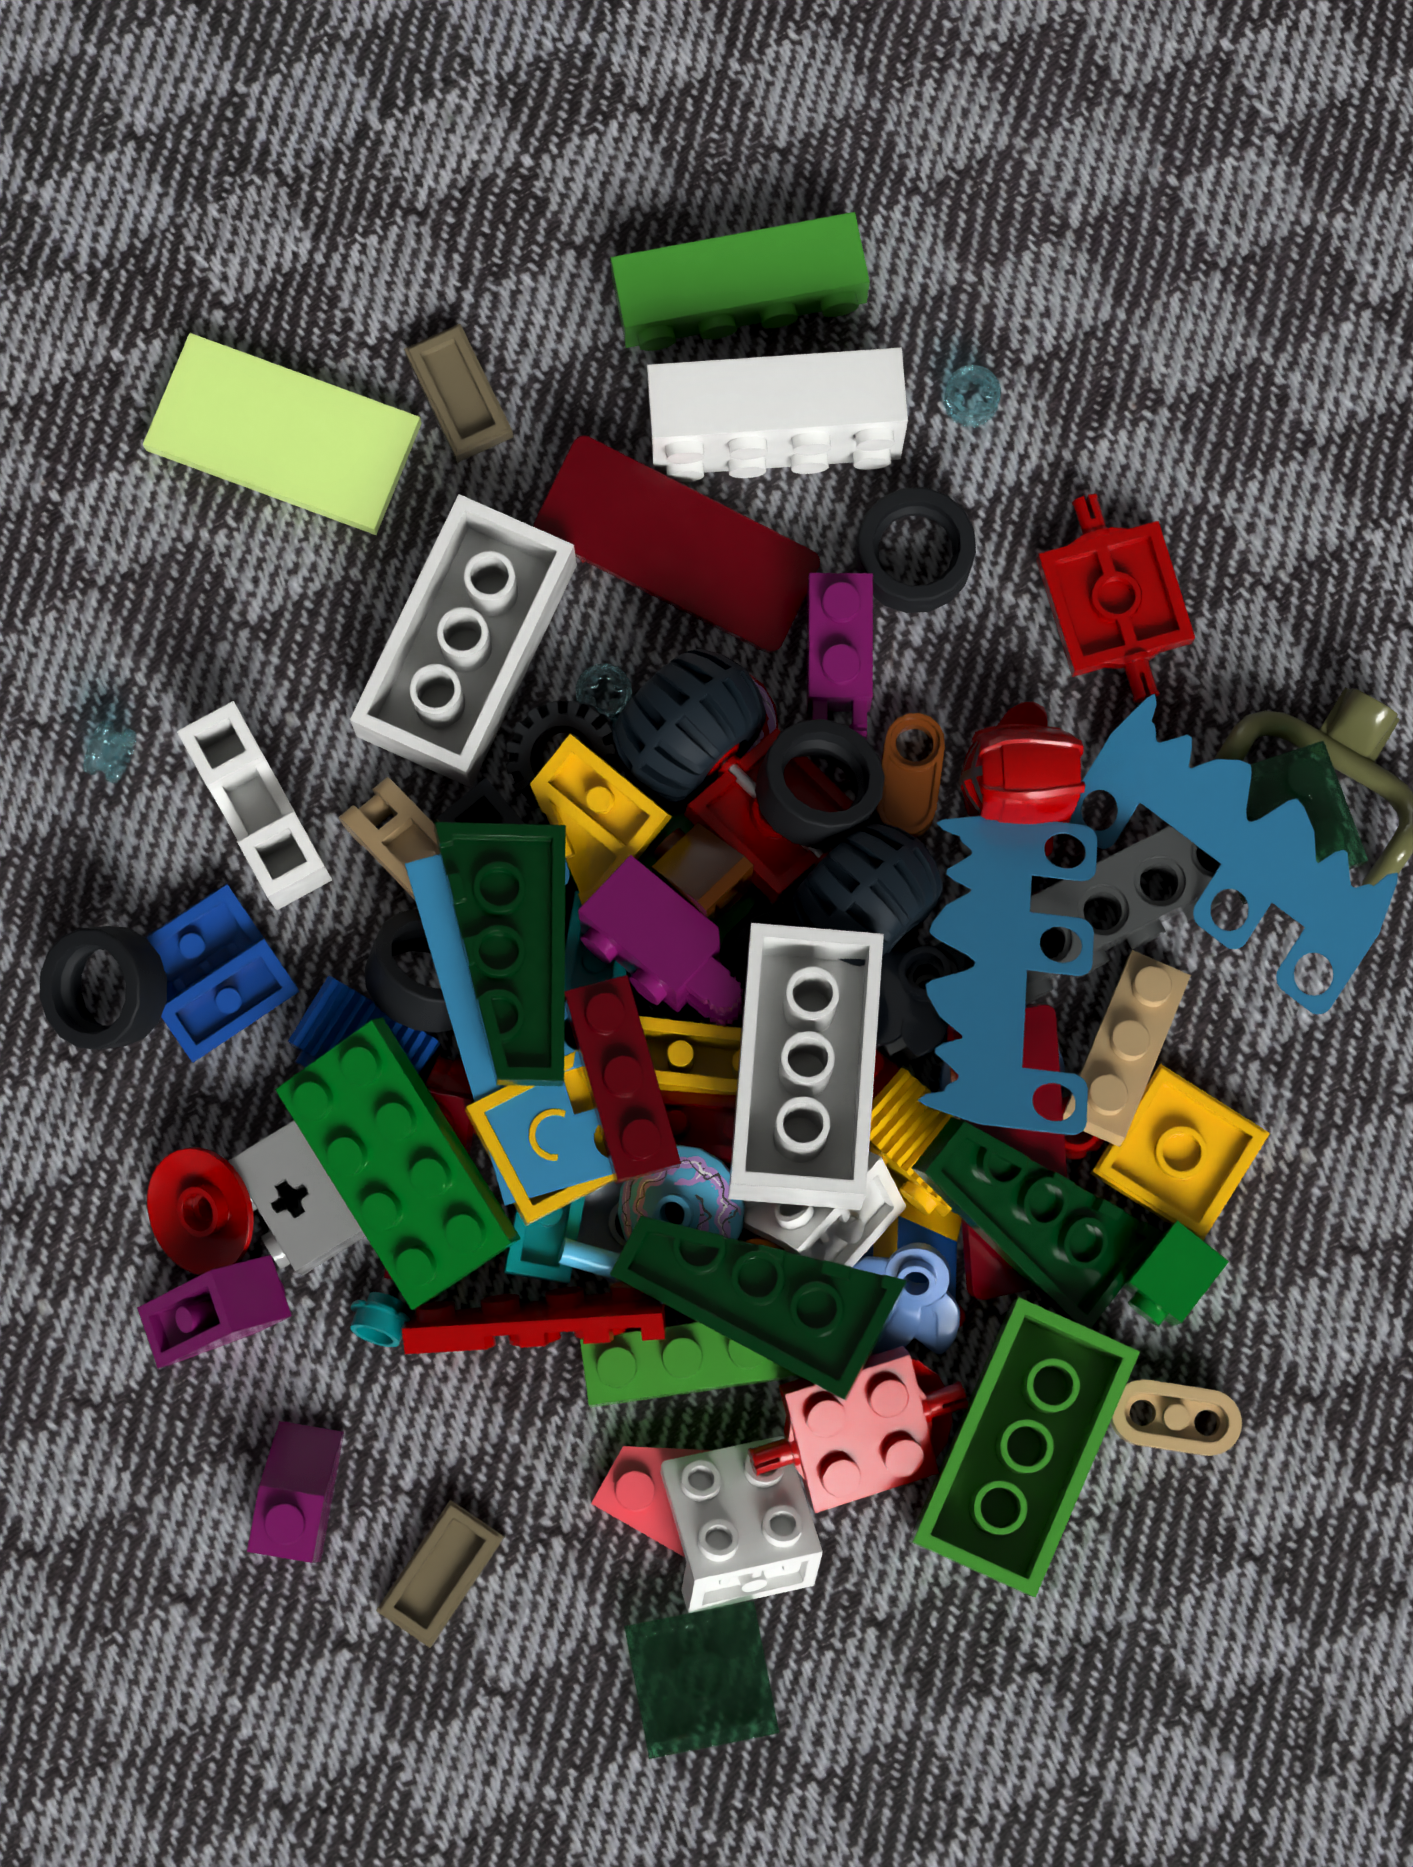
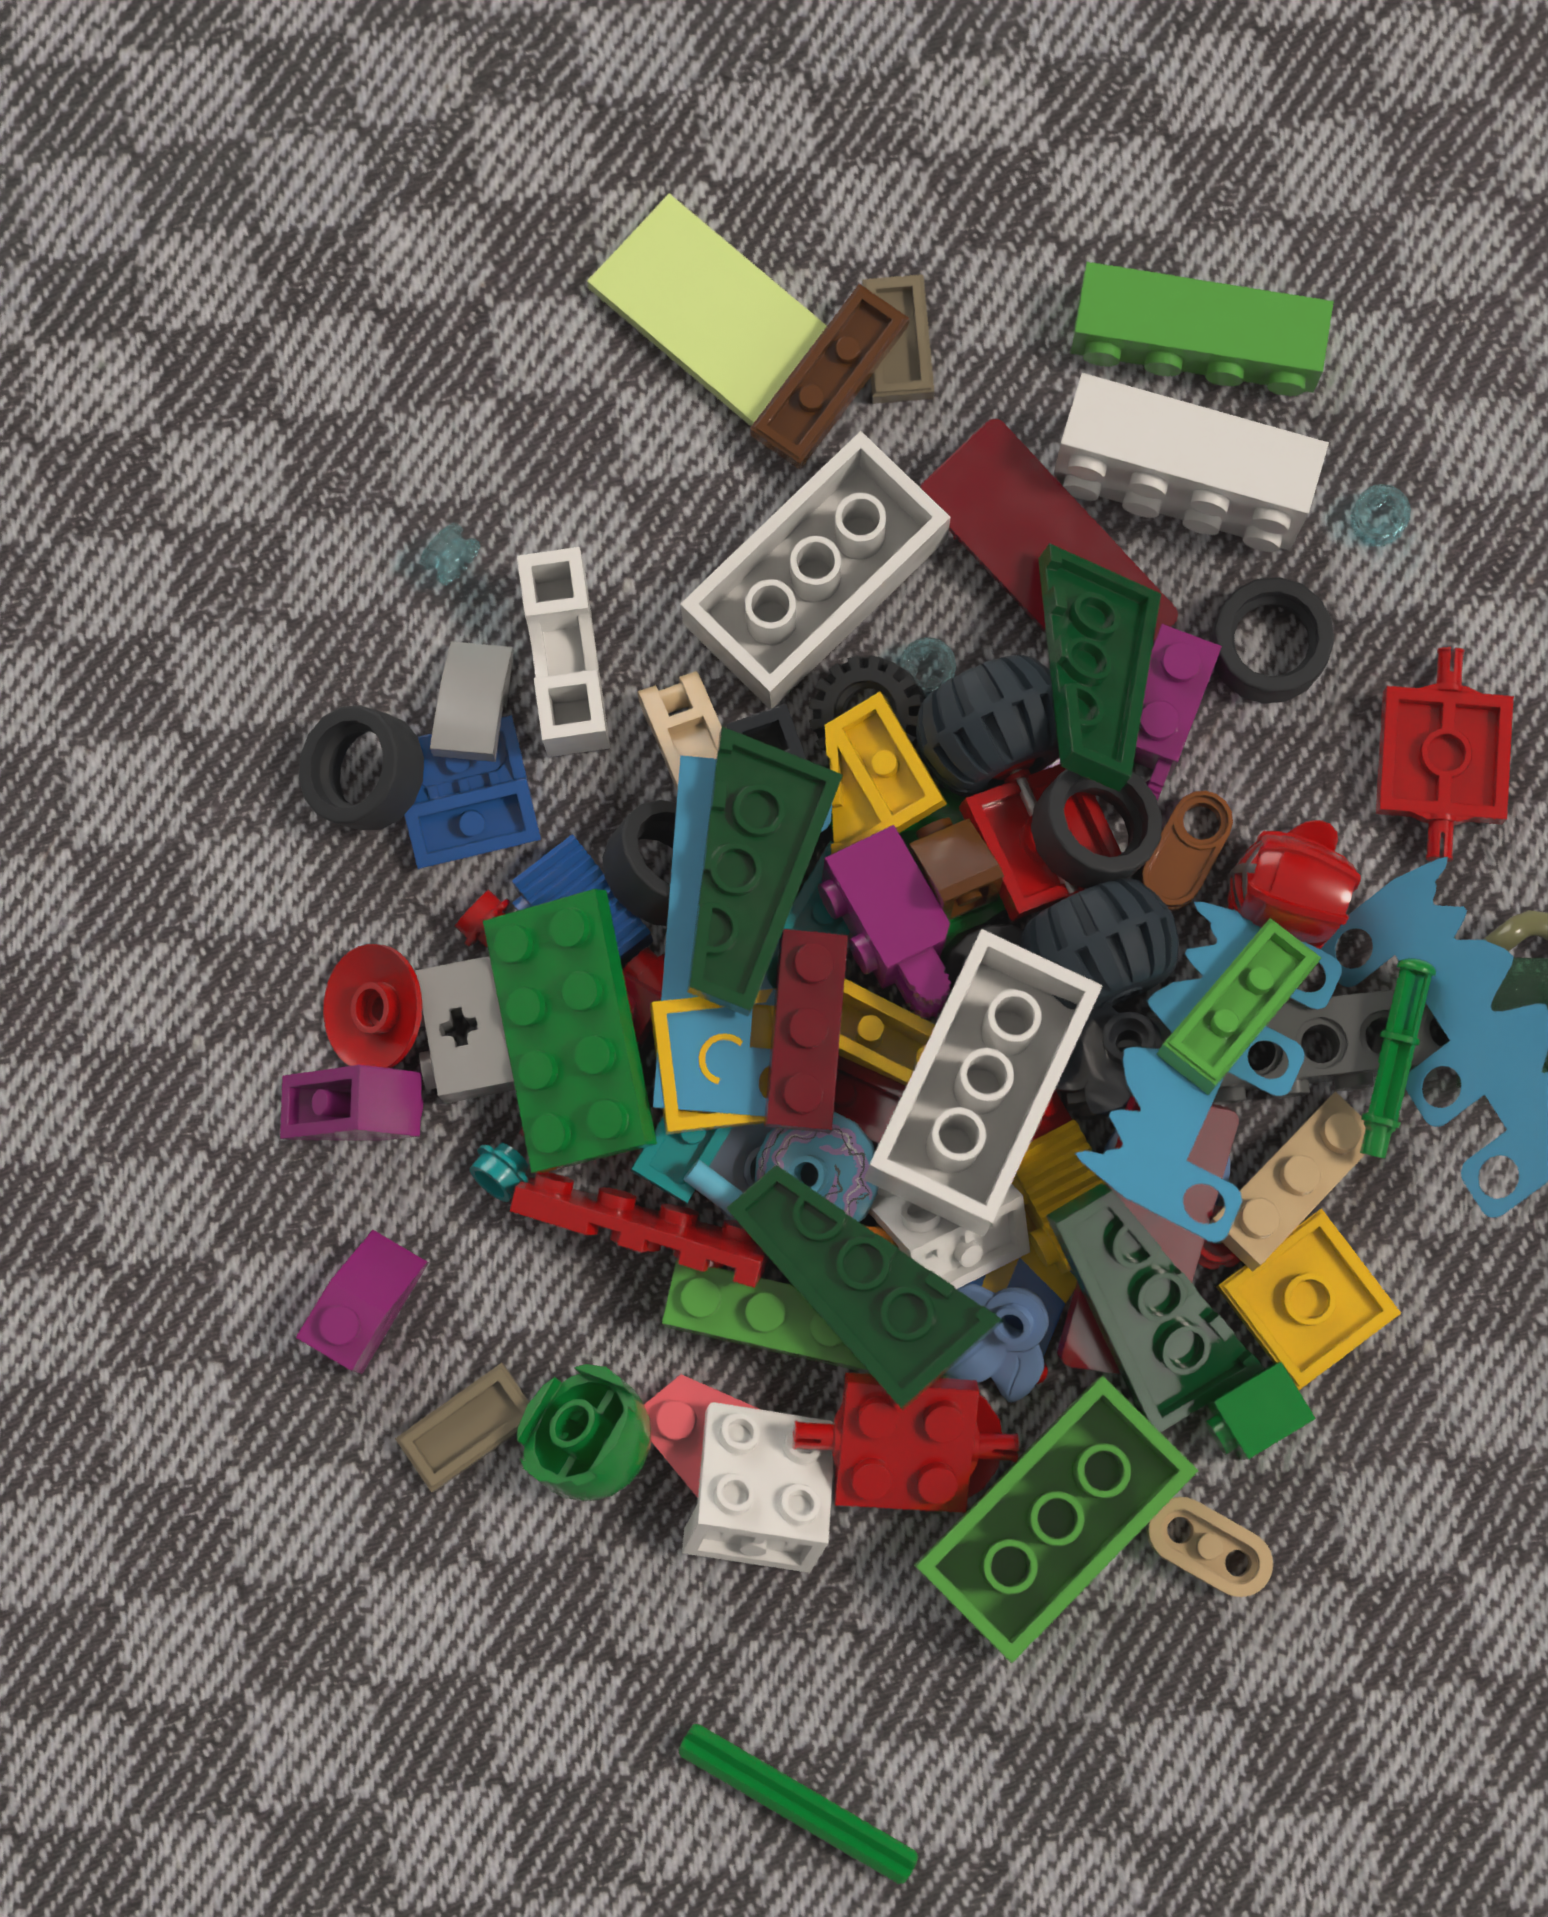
camera: 25 degrees right, 0 degrees up
(184, 884) = (471, 701): none -> light grey slope
(264, 1094) = (484, 908): none -> red plate
(408, 452) = (829, 376): none -> reddish brown tile
(555, 1537) = (585, 1434): none -> green cylinder
(701, 1679) = (671, 1619): clear green plate -> none
(765, 631) = (1099, 662): none -> dark green wing
(885, 1805) = (798, 1804): none -> green axle
(1015, 905) = (1238, 1006): none -> bright green tile
(1176, 895) = (1396, 1055): none -> green piece

